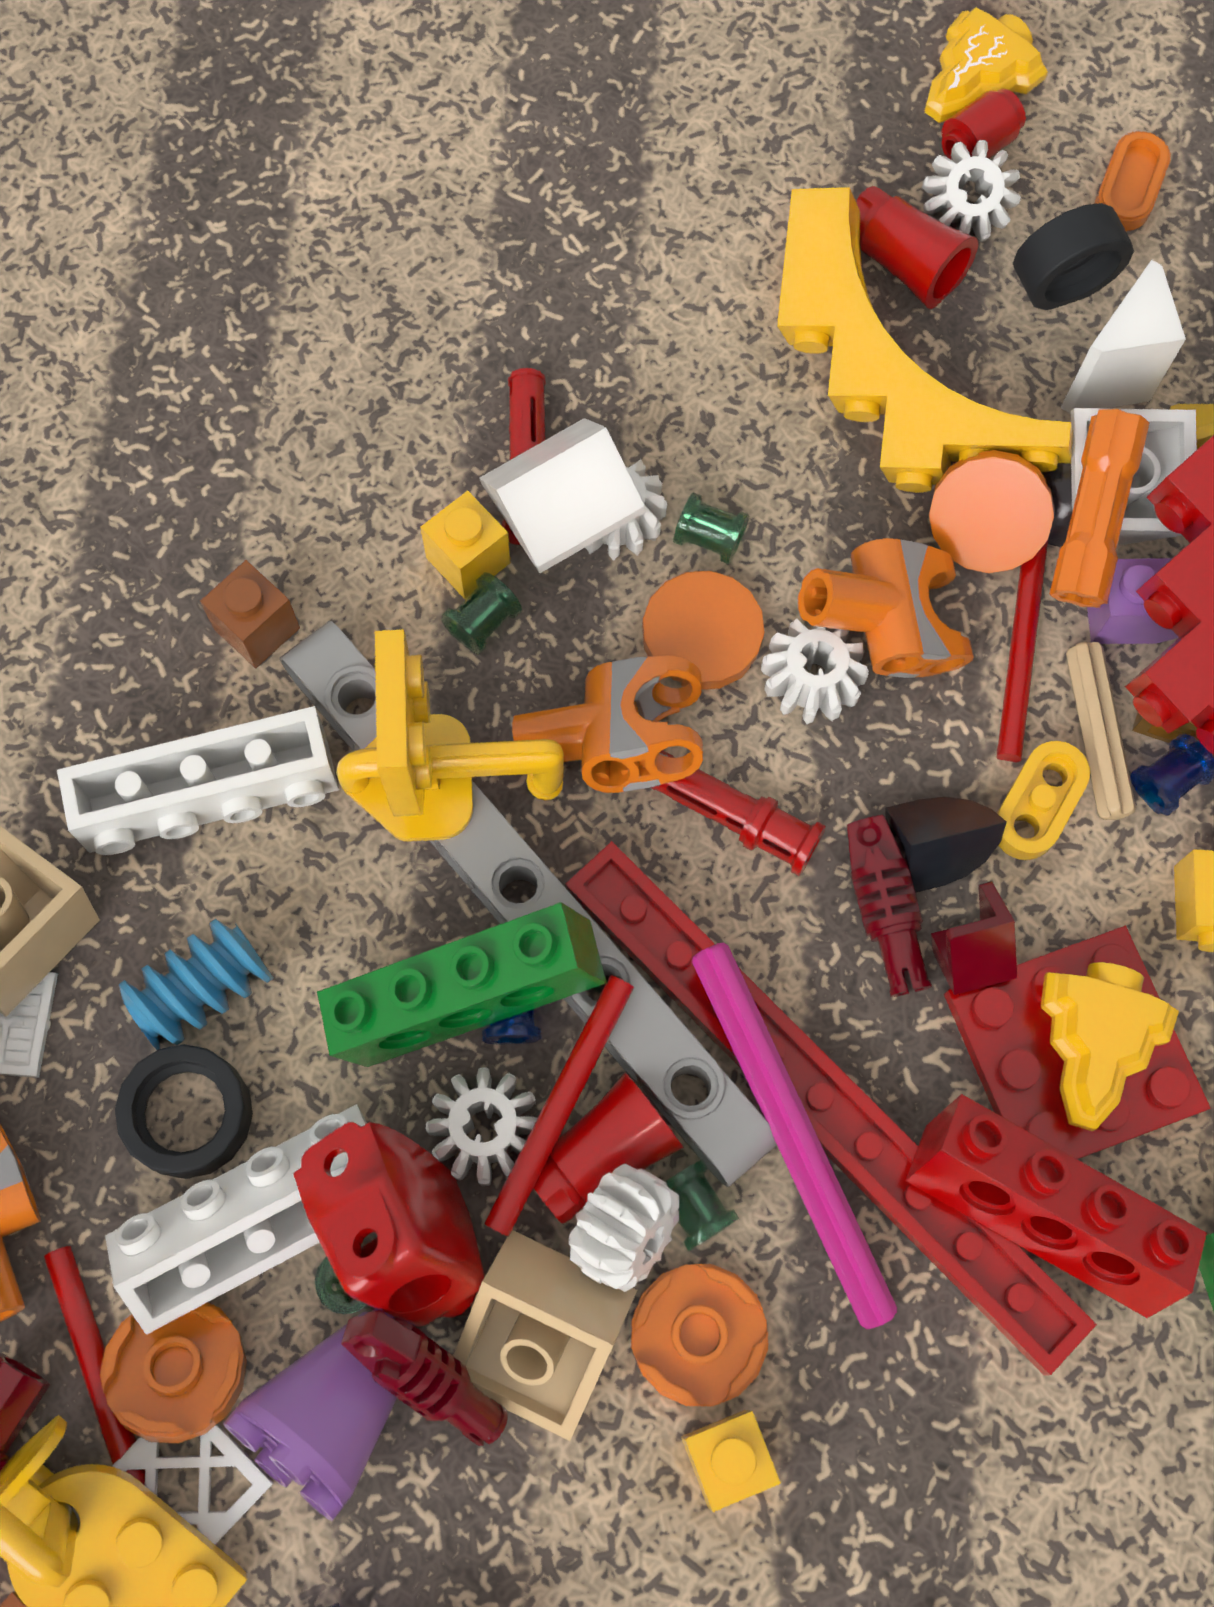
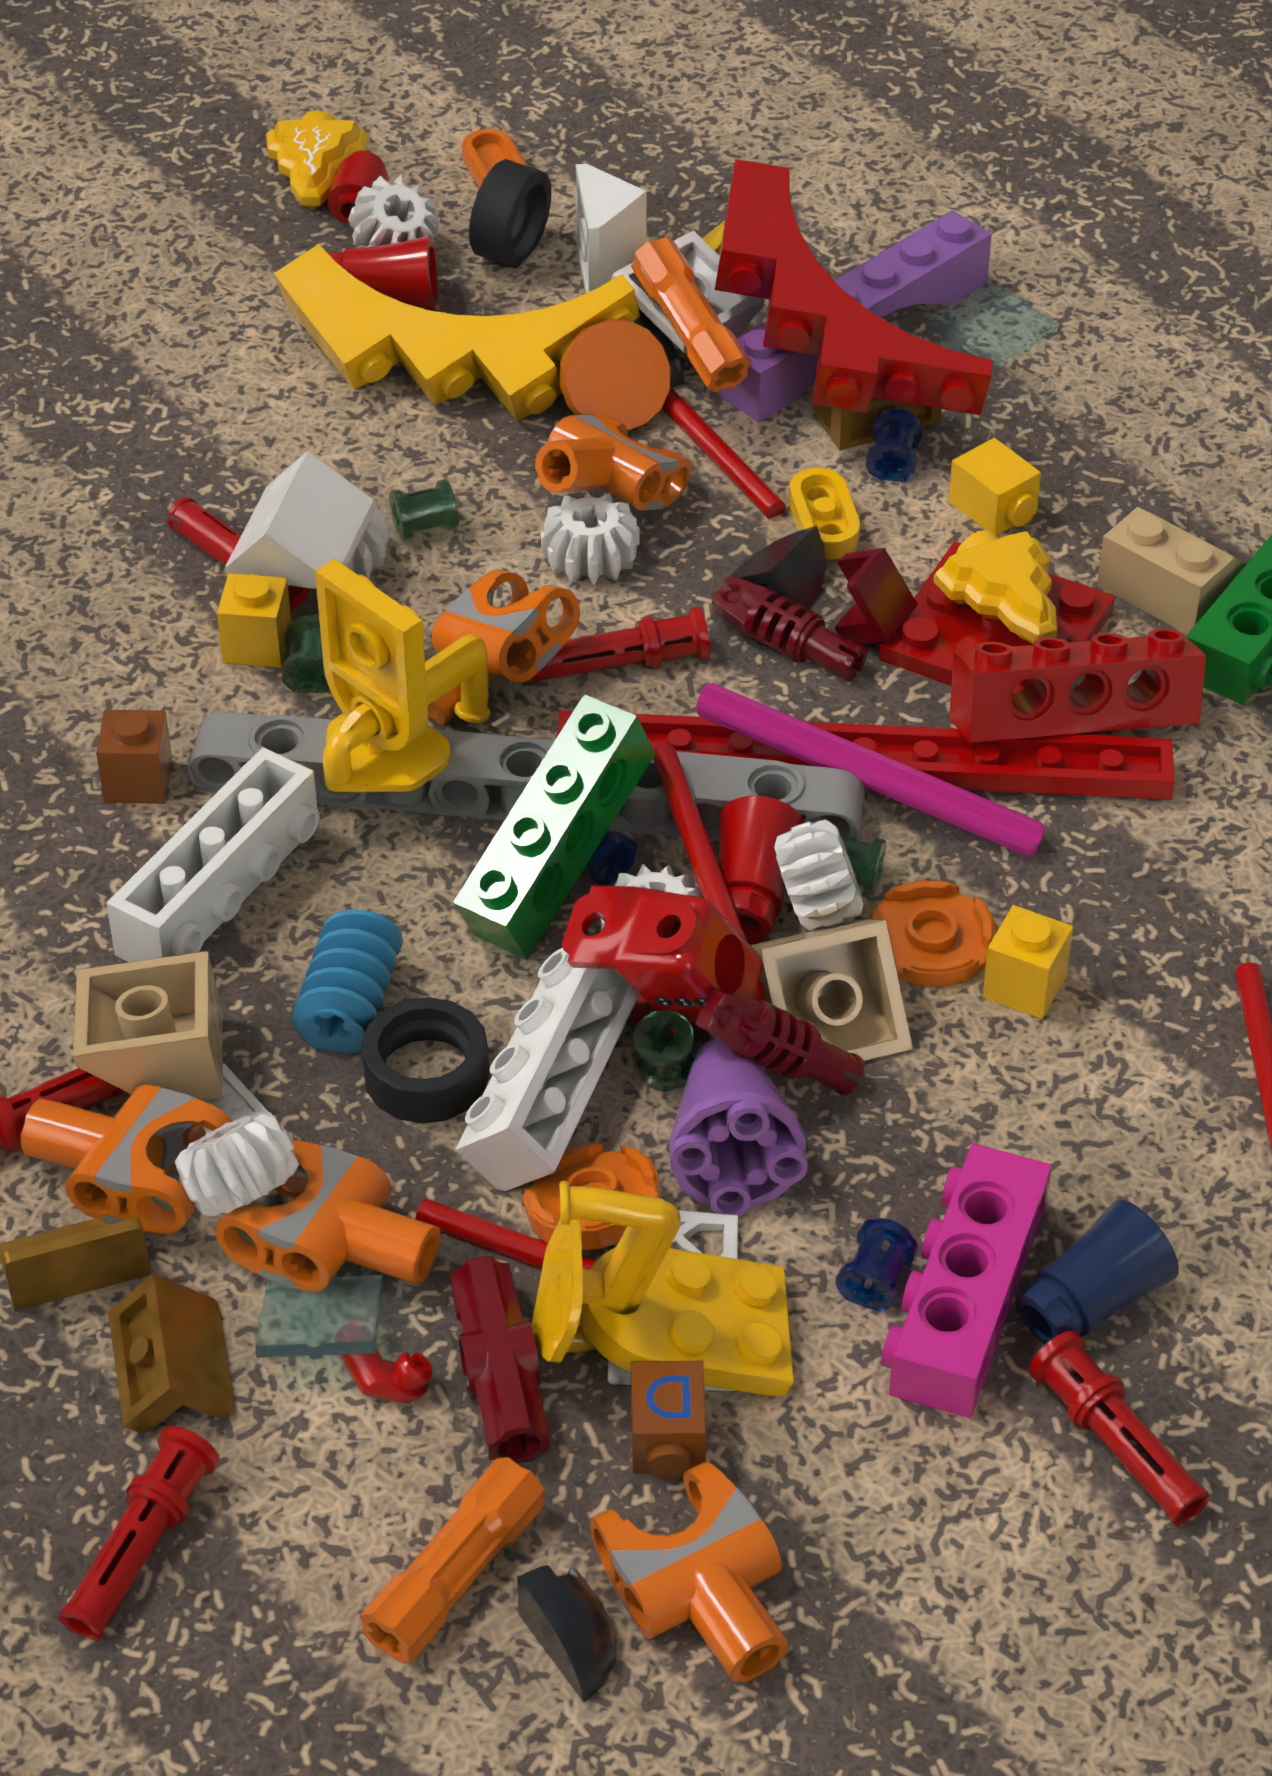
camera: 40 degrees left, 25 degrees down
(707, 622) = (473, 552): orange tile -> none
(1100, 731) = (811, 451): tan axle -> none

